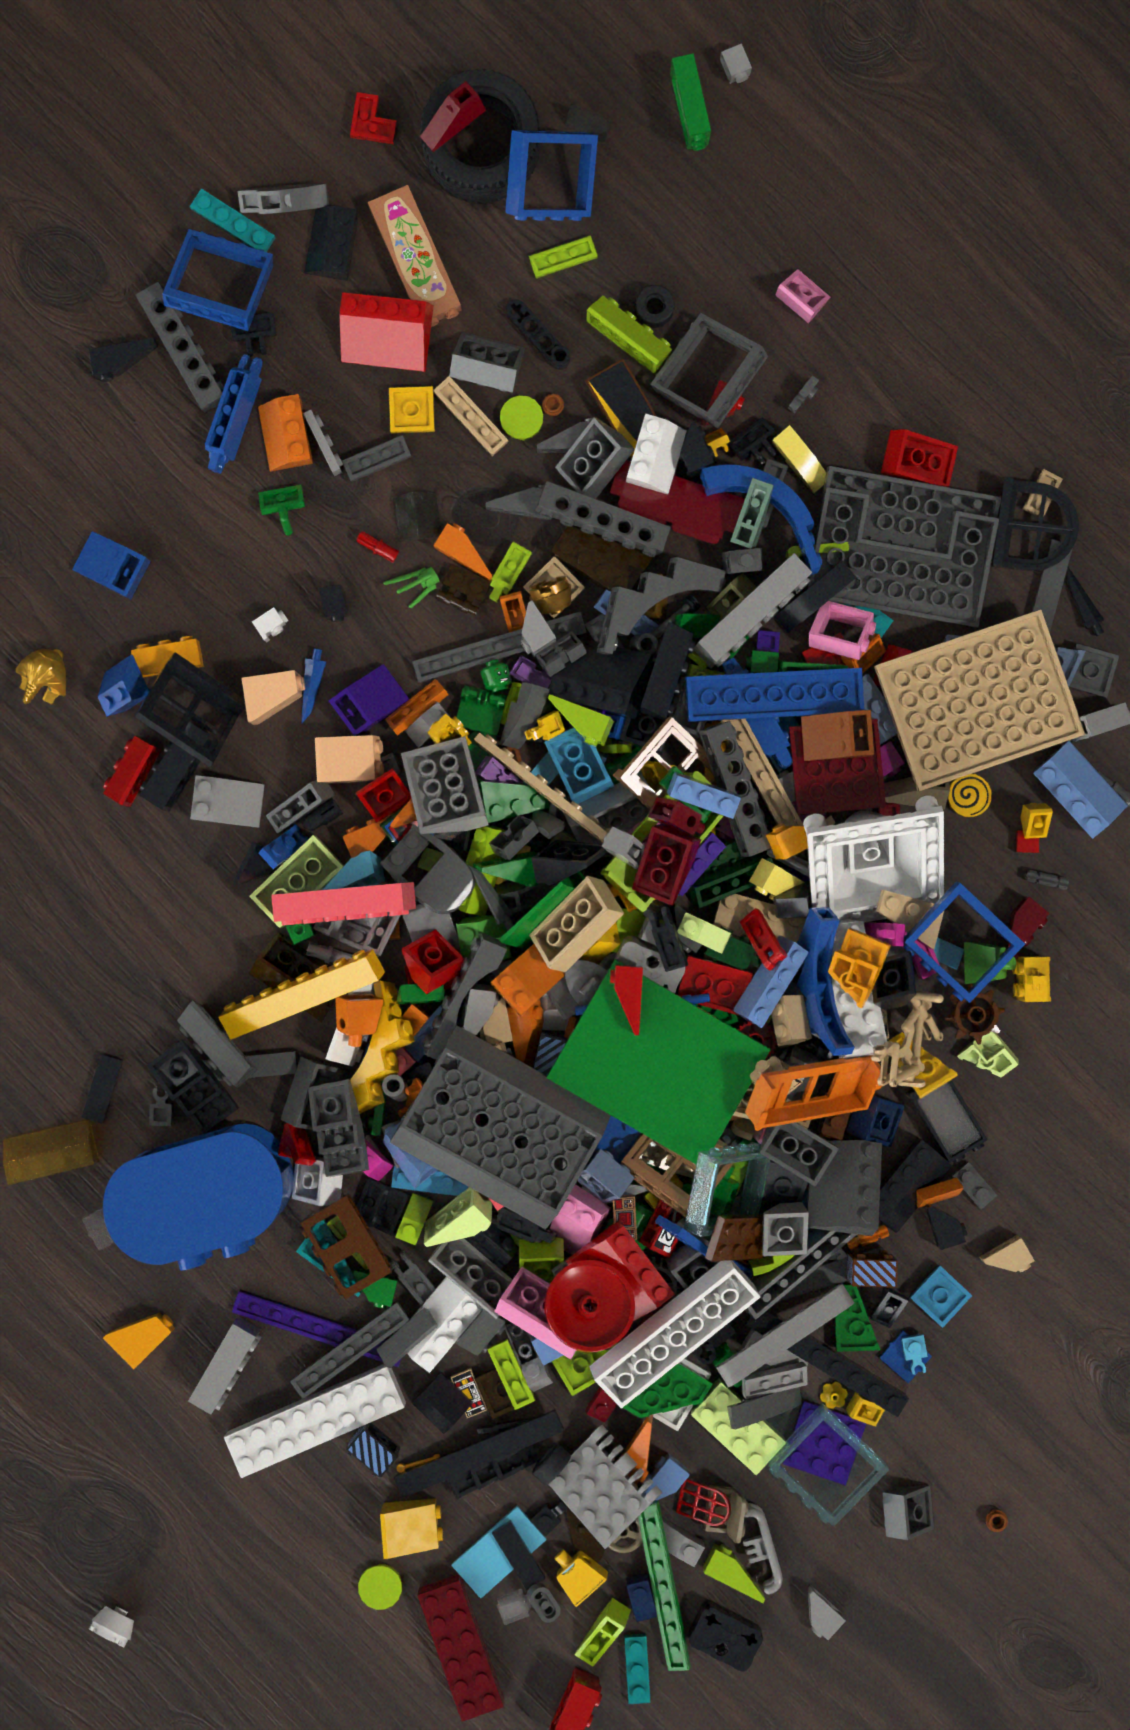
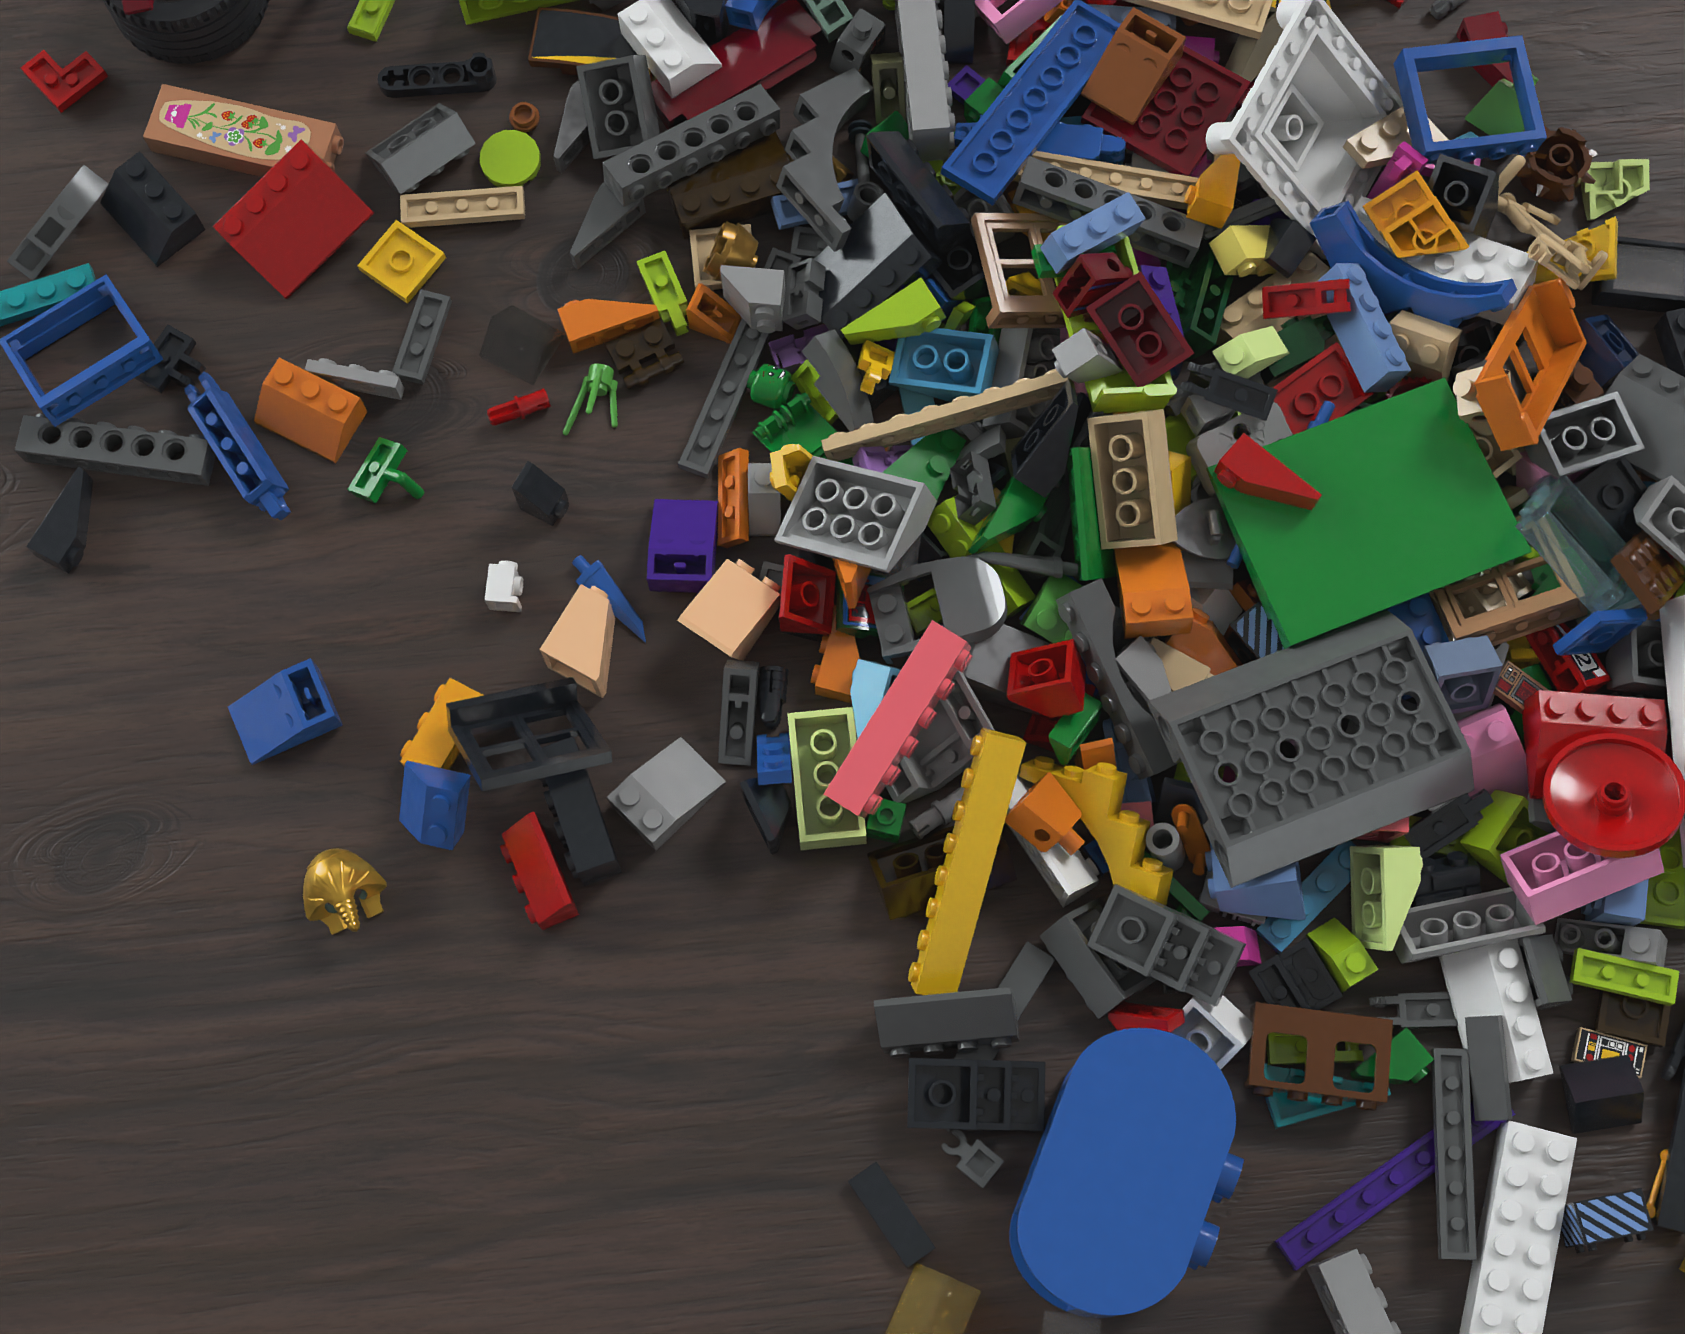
camera: 50 degrees left, 15 degrees down
(1032, 979) = (1563, 75): yellow hinge -> none

